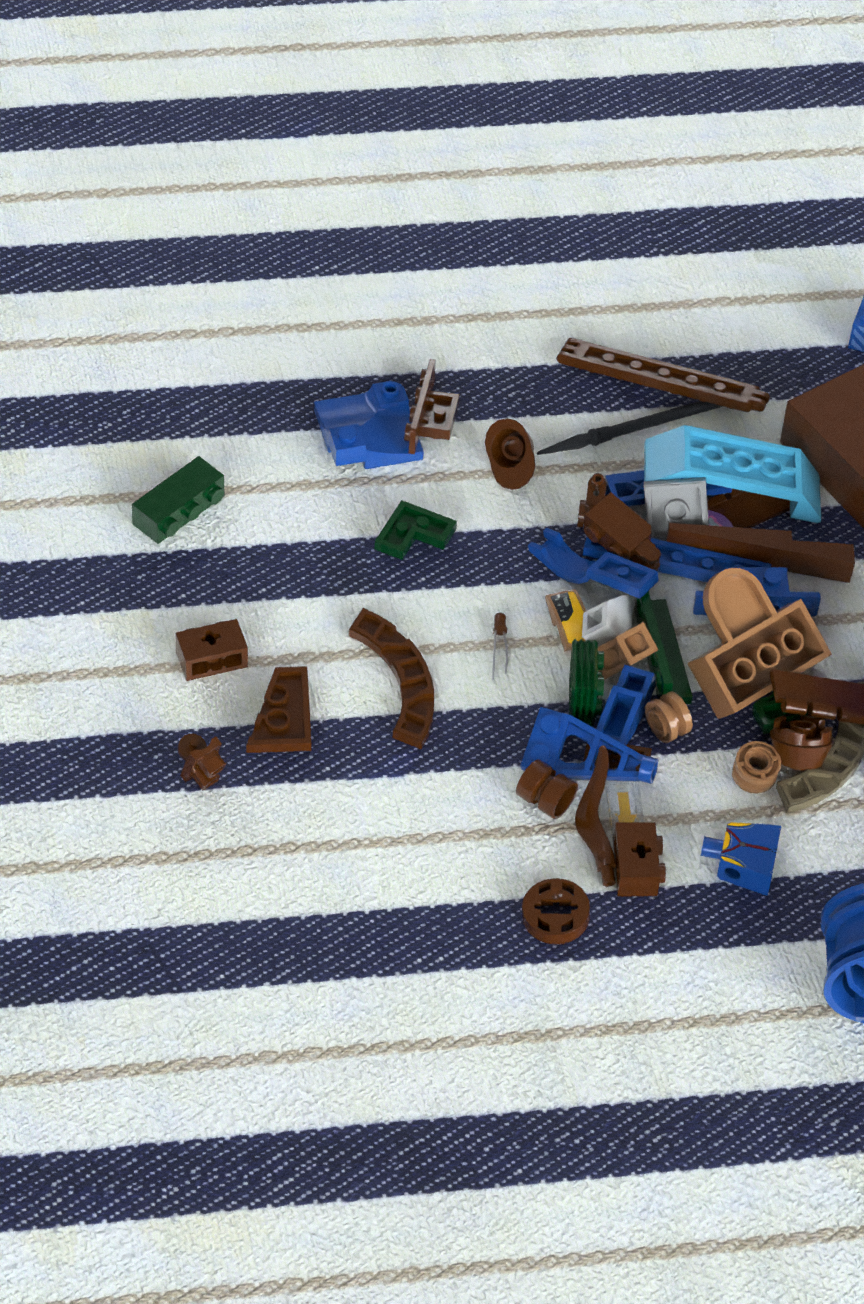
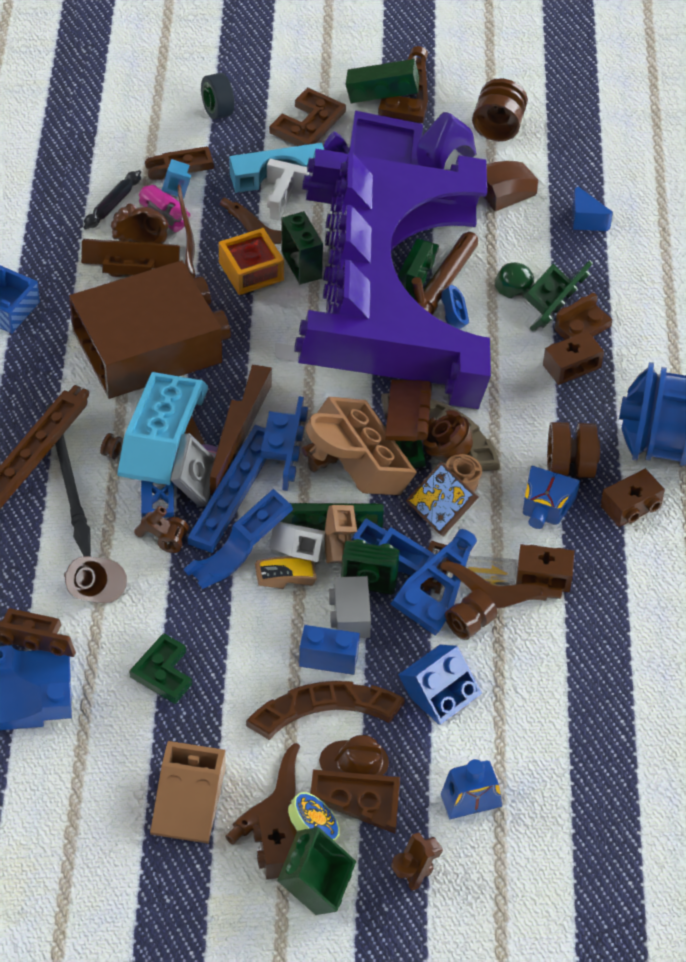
camera: 80 degrees left, 0 degrees up
(172, 675) = (317, 871): none -> dark green piece
(178, 500) = (89, 850): dark green brick -> none
(240, 669) = (310, 812): none -> tile
(259, 566) = (188, 792): none -> medium nougat slope
(273, 652) = (278, 800): none -> reddish brown piece
(298, 798) = (471, 789): none -> blue torso
(335, 711) = (356, 755): none -> reddish brown piece
(445, 770) = (441, 682): none -> blue slope
(467, 664) = (329, 649): none -> blue brick
(499, 629) = (283, 624): piece -> none
(532, 680) = (351, 605): none -> light grey brick
(556, 927) = (575, 644): reddish brown piece -> none
(621, 532) = (214, 510): reddish brown hinge -> none
(668, 717) = (408, 518): medium nougat wheel -> none
(709, 747) = (442, 499): none -> tile
(771, 943) = (632, 497): none -> reddish brown brick
(816, 863) = (581, 451): none -> reddish brown wheel

